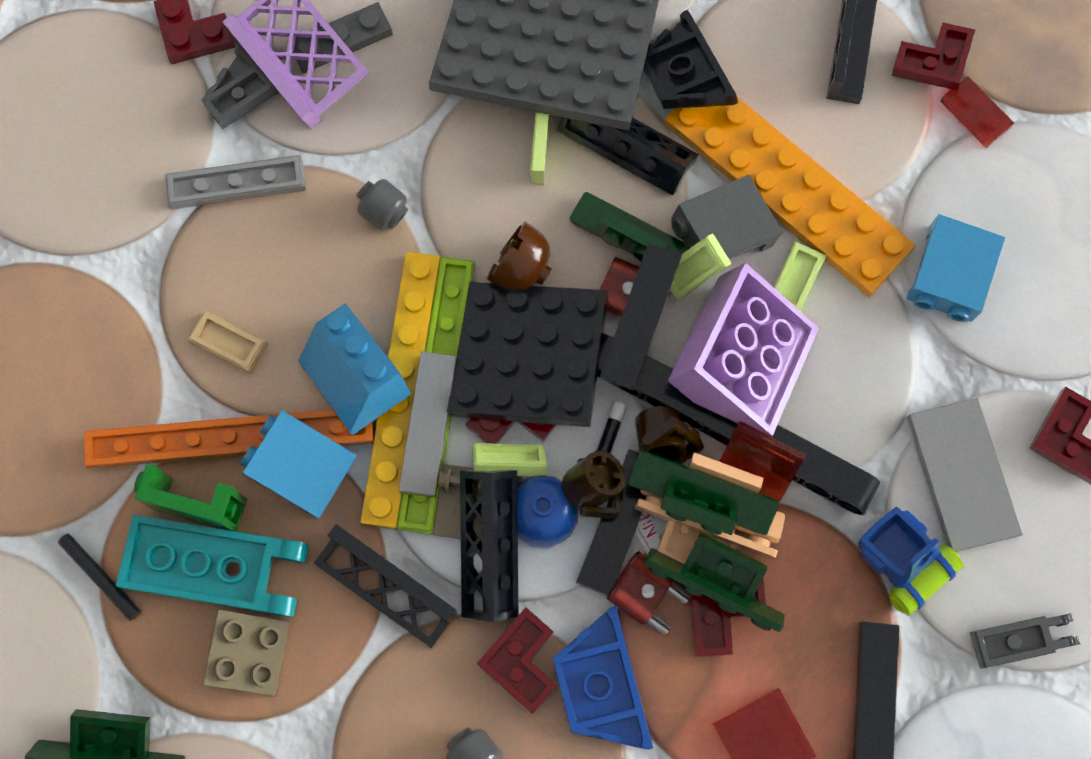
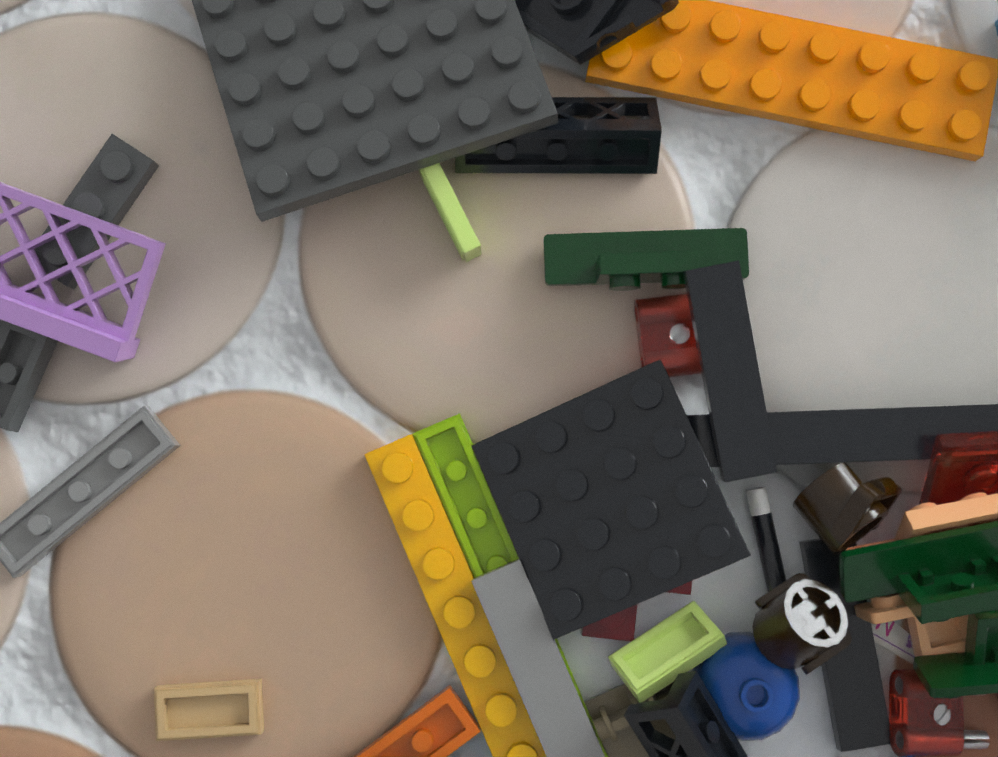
camera: 30 degrees left, 10 degrees up
(351, 370) = (399, 660): dark azure slope -> none
(381, 204) = (294, 411): dark grey head -> none
(522, 260) = (524, 381): reddish brown cylinder -> none
(698, 266) = (765, 253): yellowish green tile -> none
(732, 214) = (755, 178): dark grey panel -> none
(744, 351) = (880, 335): lavender slope -> none
(799, 274) = (875, 193): yellowish green tile -> none

